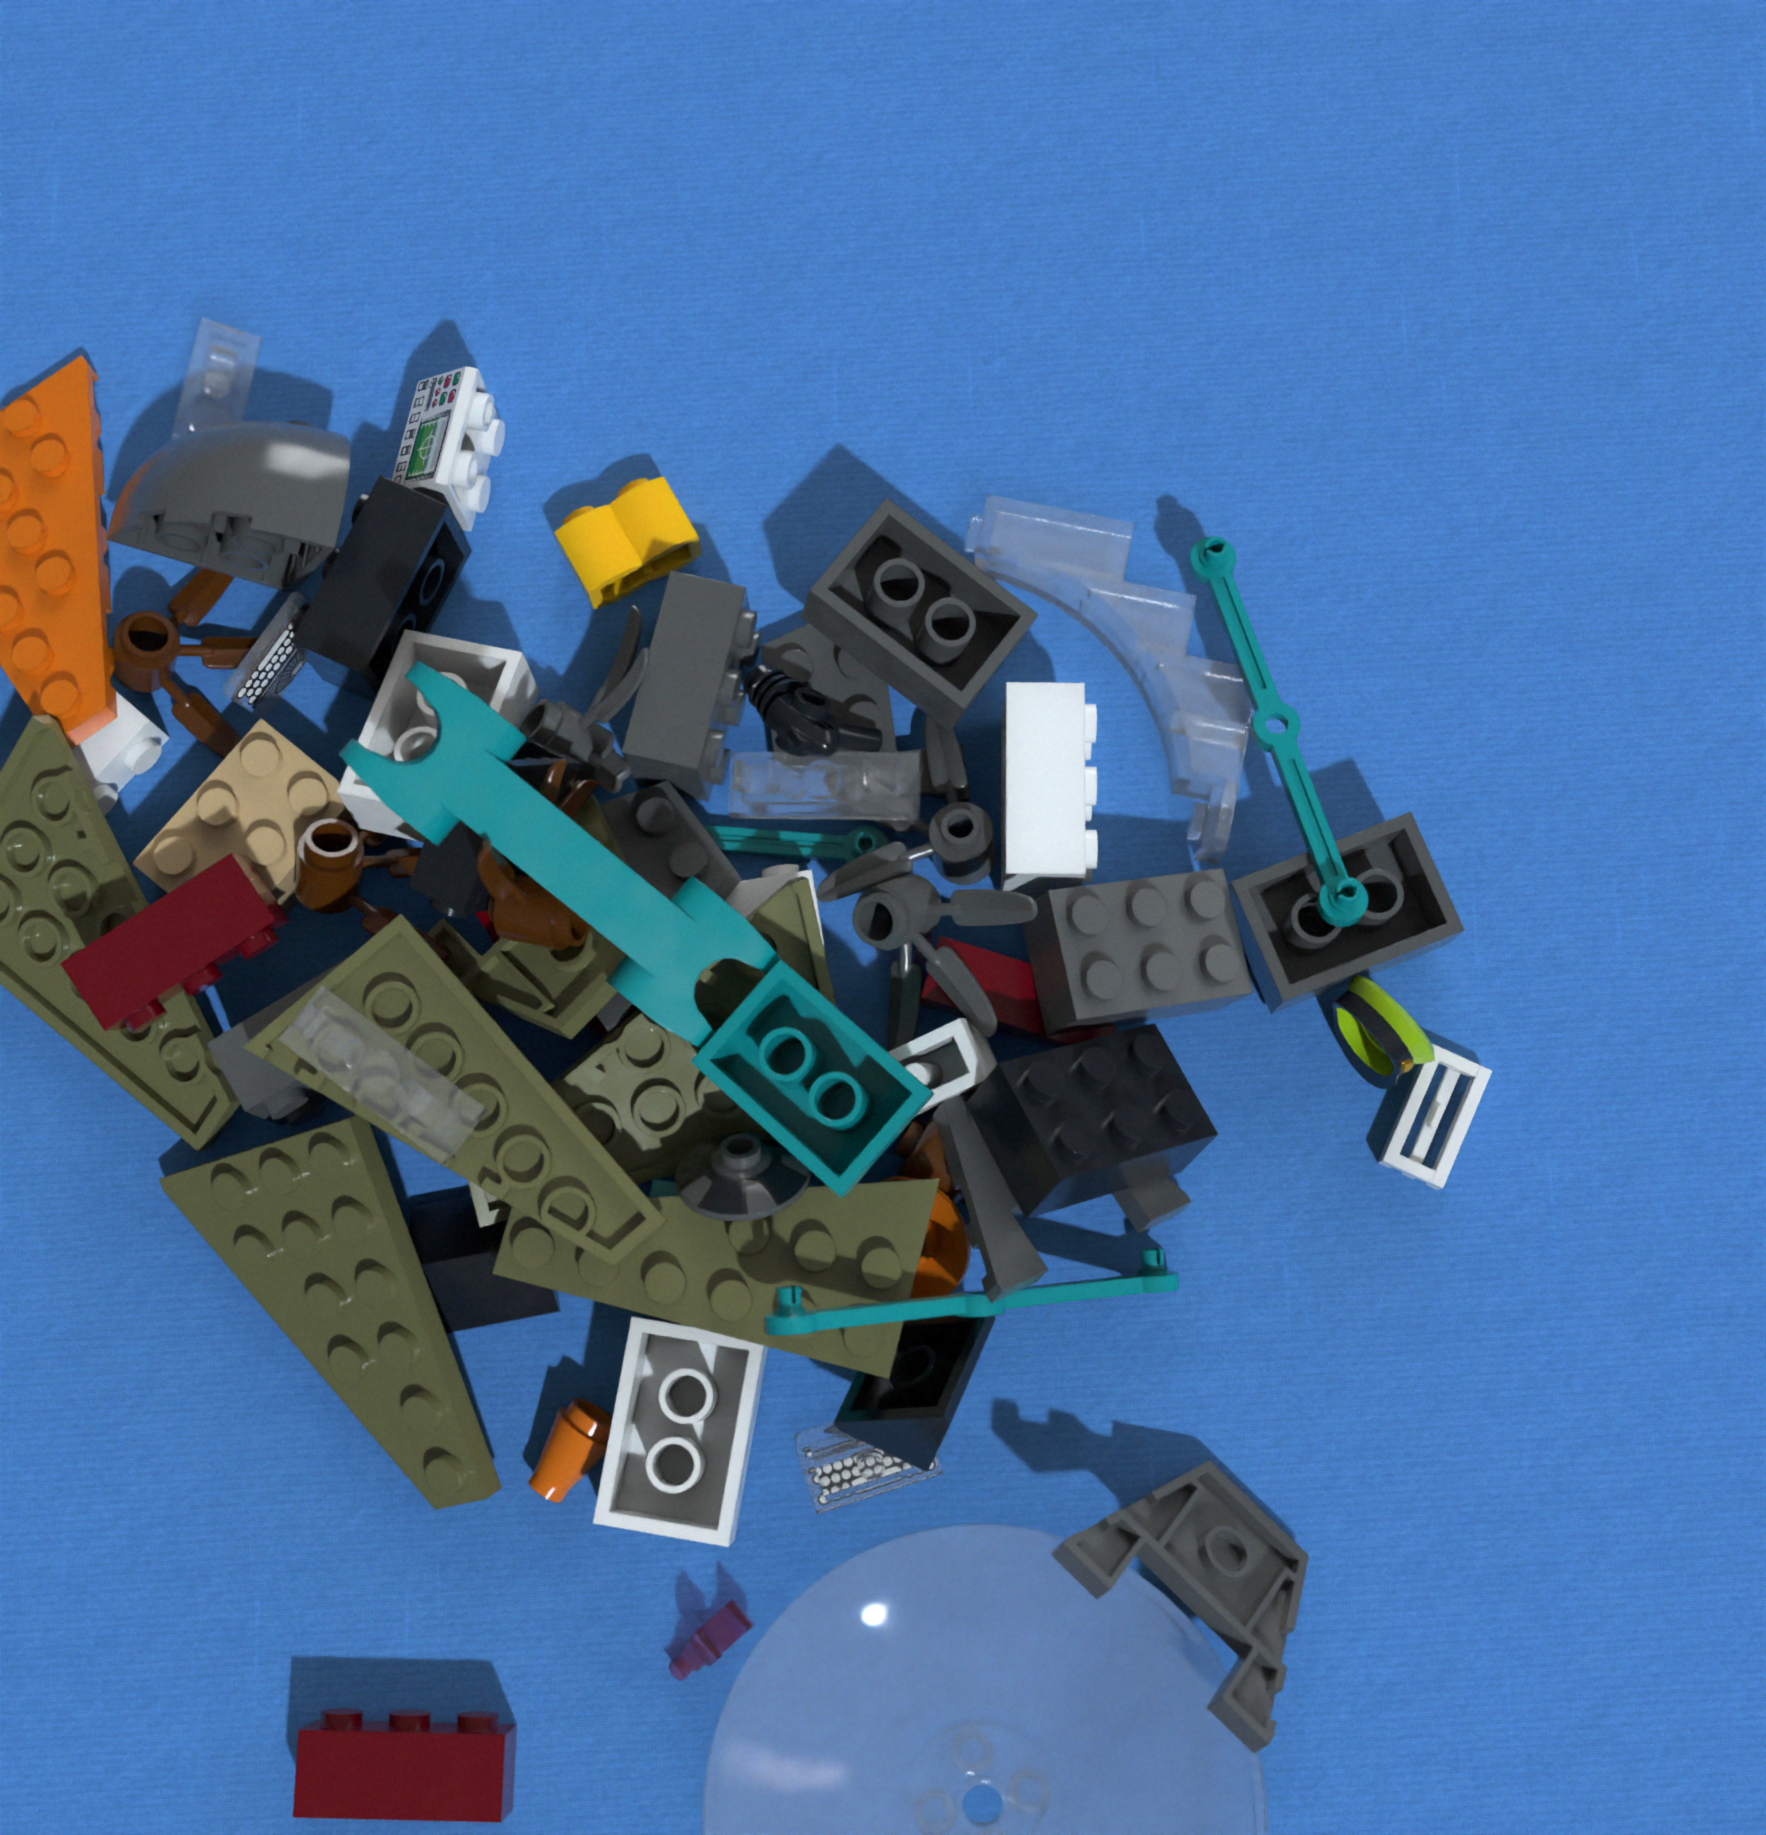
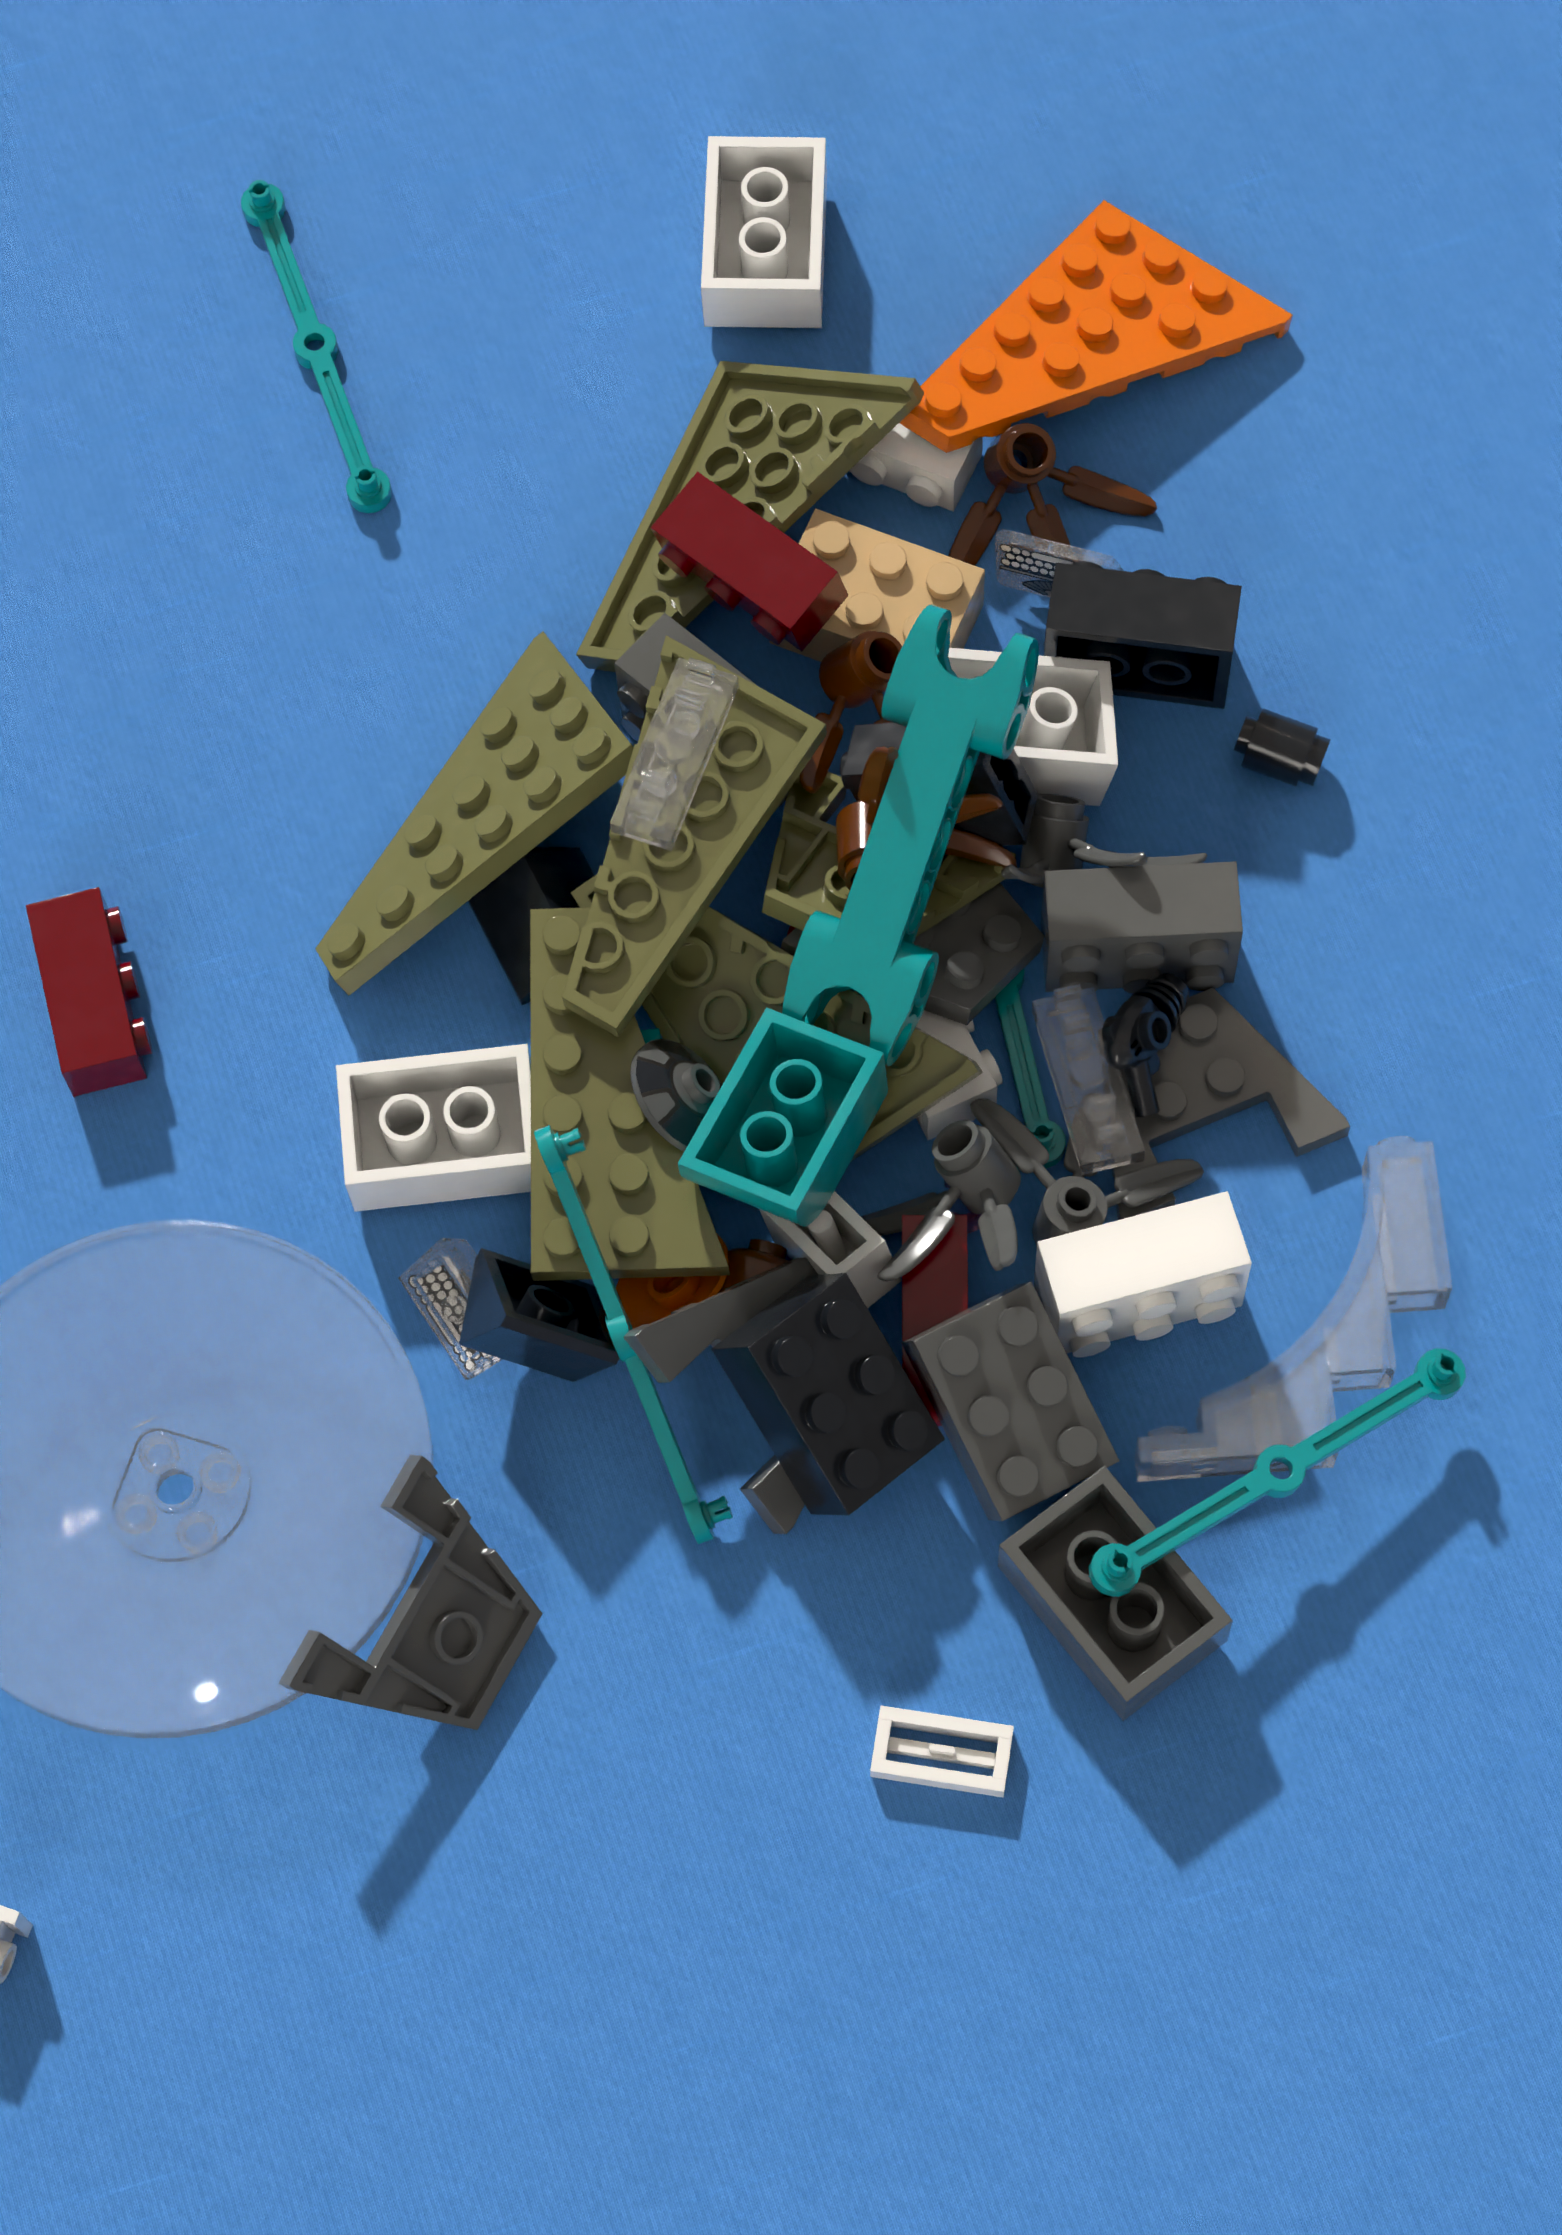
camera: 75 degrees right, 10 degrees down
(216, 377) = (1268, 437): clear plate -> none
(240, 500) = (1188, 480): dark grey brick -> none
(451, 443) = (1305, 651): white slope -> none
(537, 506) = (1281, 748): none -> black brick
(572, 1448) = (395, 1038): orange cone -> none
(627, 541) = (1275, 836): yellow brick -> none
(711, 1640) = (259, 1214): piece -> none
(917, 614) = (1280, 1106): dark grey brick -> none
(1378, 1034) = (1009, 1662): piece -> none

